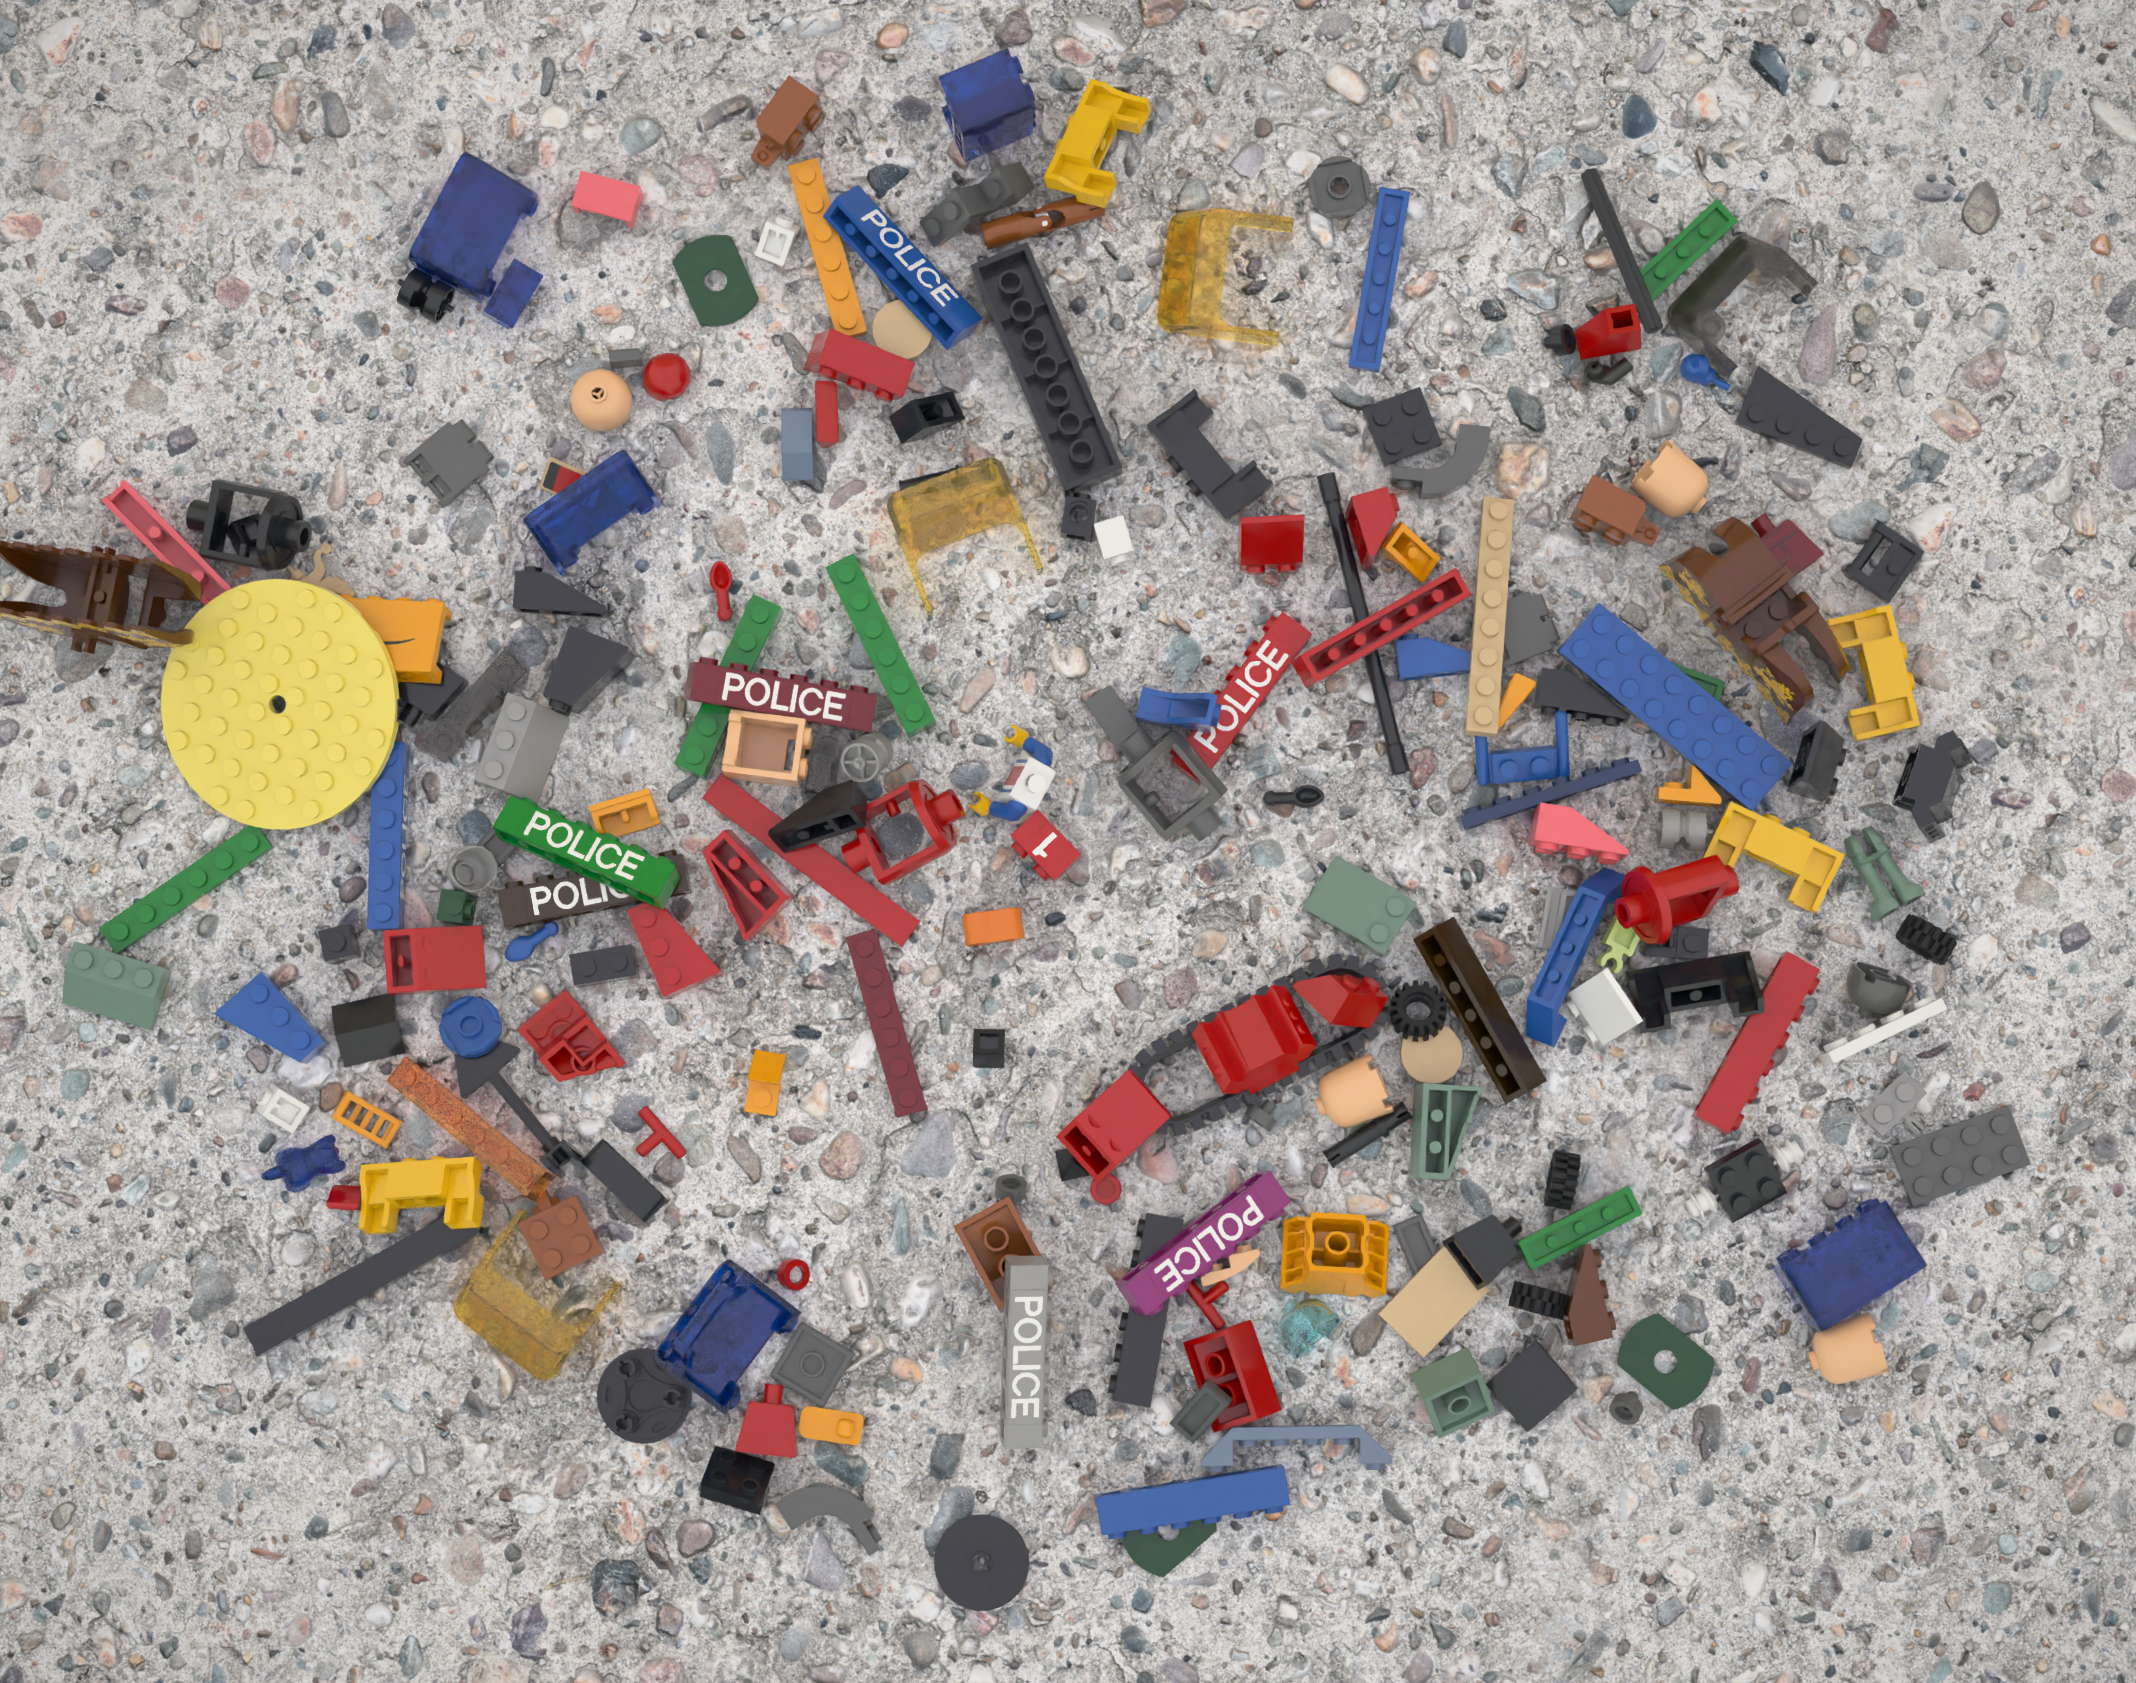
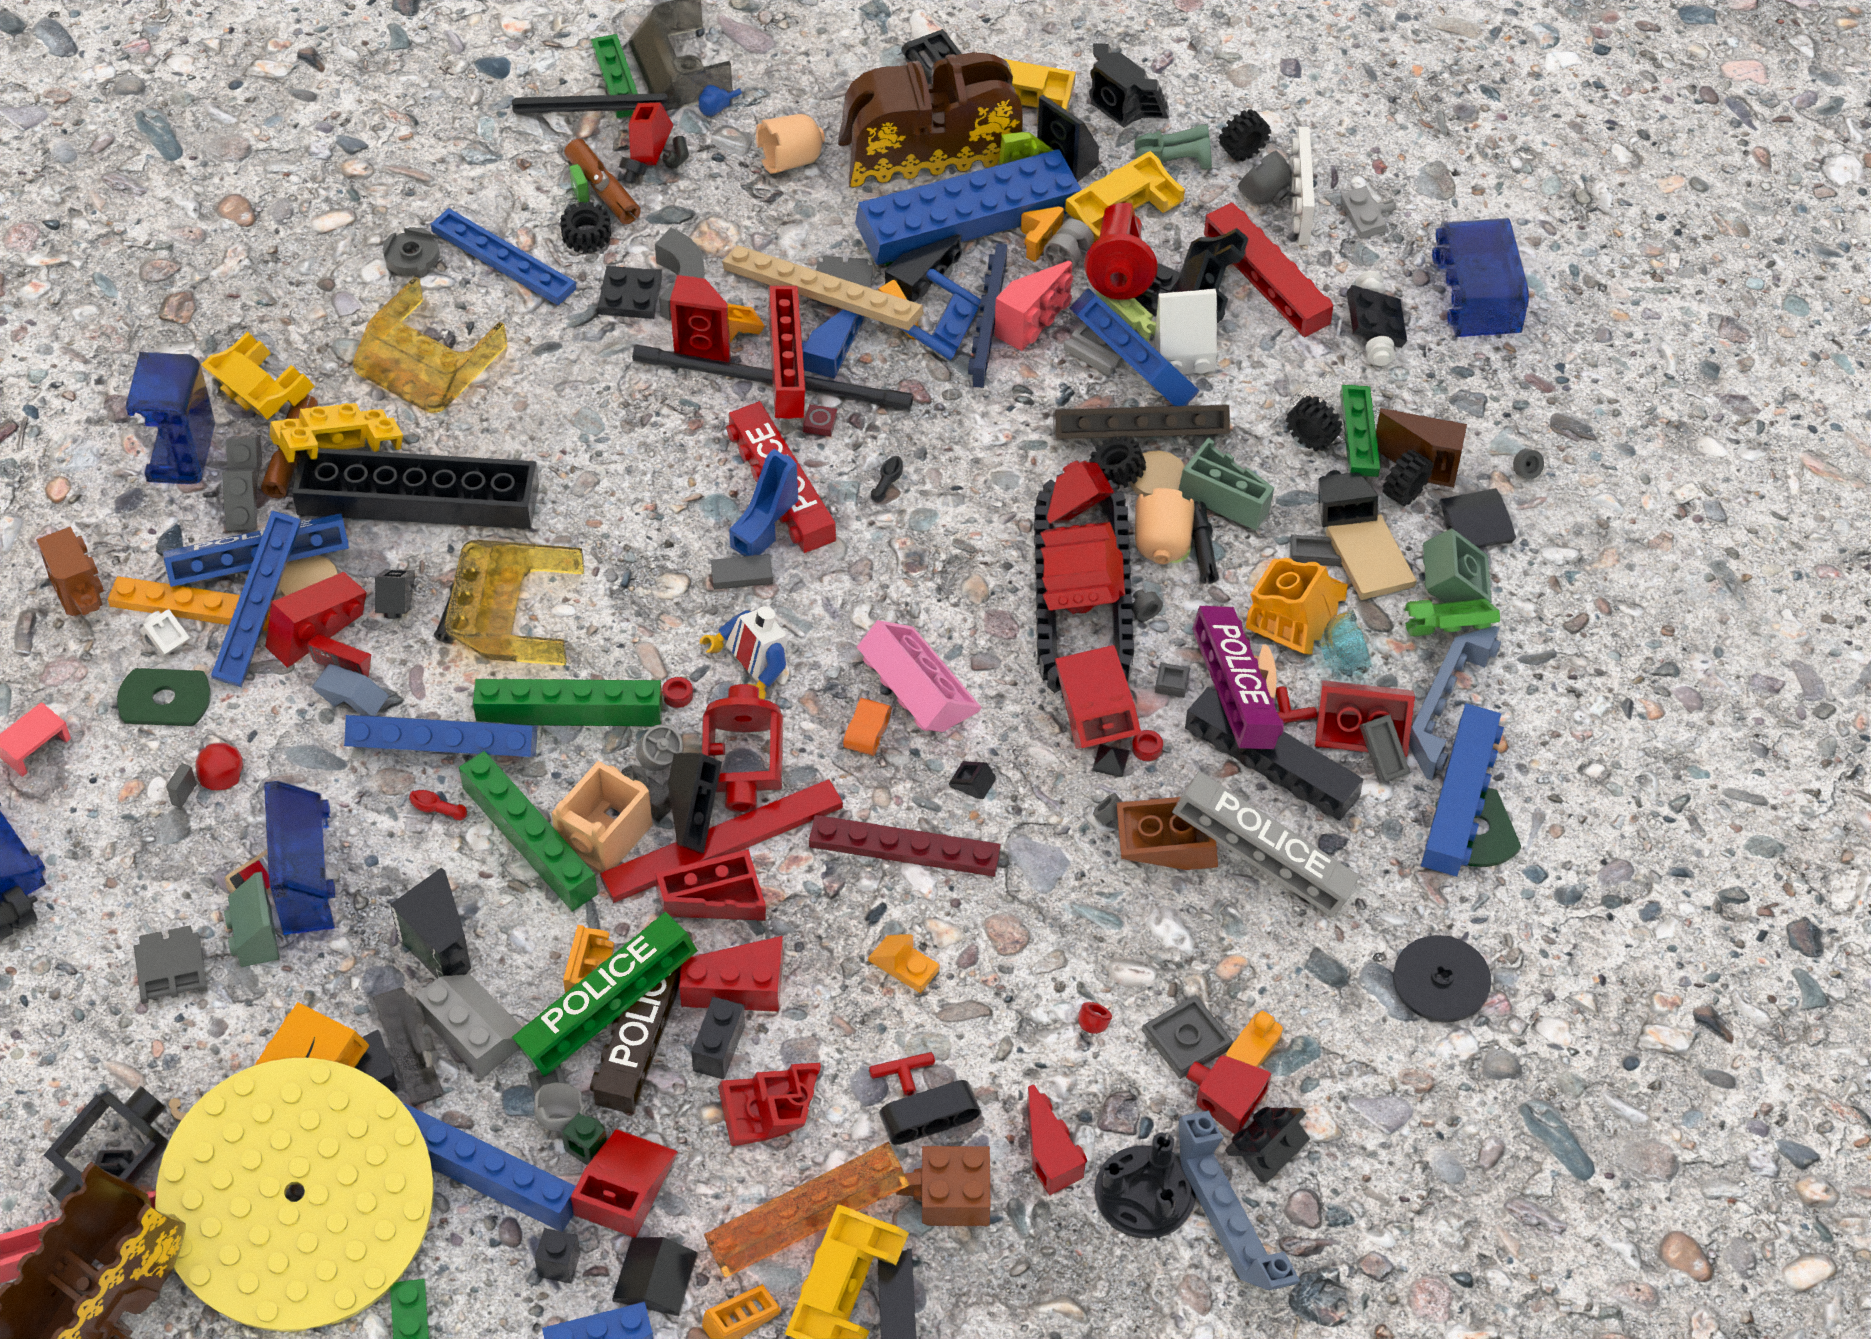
camera: 65 degrees left, 30 degrees down
(470, 1026) = (707, 1179): blue tile -> none
(476, 1071) = (745, 1185): black piece -> none
(507, 512) = (251, 923): none -> sand green slope
(512, 294) = (58, 848): clear blue hinge -> none
(516, 1320) = (1010, 1262): clear yellow windscreen -> none
(524, 946) = (657, 1105): blue piece -> none
(545, 594) = (350, 934): black slope -> none
(604, 412) = (202, 822): light nougat cylinder -> none
(634, 1302) = (1053, 1154): none -> red slope
(648, 1478) = (1198, 1142): none -> sand blue slope
(724, 1334) = (1114, 1086): clear blue windscreen -> none
(780, 696) = (531, 802): dark red brick -> none
(785, 555) = (440, 735): none -> blue brick
(833, 1501) = (1333, 1063): dark grey arch -> none
(841, 305) = (256, 599): none -> blue plate
(950, 734) = (677, 692): none -> red tile
(1044, 846) = (820, 659): brick -> none
(1069, 253) = (334, 428): none -> yellow bracket
(1072, 945) = (917, 676): none -> bright pink slope
(1078, 531) = (555, 522): black brick -> none
(1113, 541) = (591, 506): white brick -> none
(1142, 751) = (789, 545): dark grey piece -> none
(1192, 1178) = (1172, 680): none -> dark grey tile
(1200, 462) = (567, 419): black bracket -> none
(1270, 543) = (666, 392): red slope -> none
(1334, 696) = (820, 420): none -> dark red tile
(1359, 906) = (1008, 468): sand green slope -> none
(1390, 1412) = (1449, 616): none -> bright green plate
(1459, 356) = (588, 238): none -> black tyre
(1511, 300) = (579, 183): none -> bright green tile
(1531, 314) = (605, 183): none -> dark orange piece
(1613, 514) = (789, 183): dark orange hinge -> none
(1638, 1355) = (1520, 418): dark green piece -> none
(1783, 740) = (1020, 146): none -> lime slope
(1791, 419) = (789, 68): black wing -> none
(1848, 1351) = (1552, 299): light nougat cylinder -> none
(1959, 1156) = (1425, 189): dark grey plate -> none

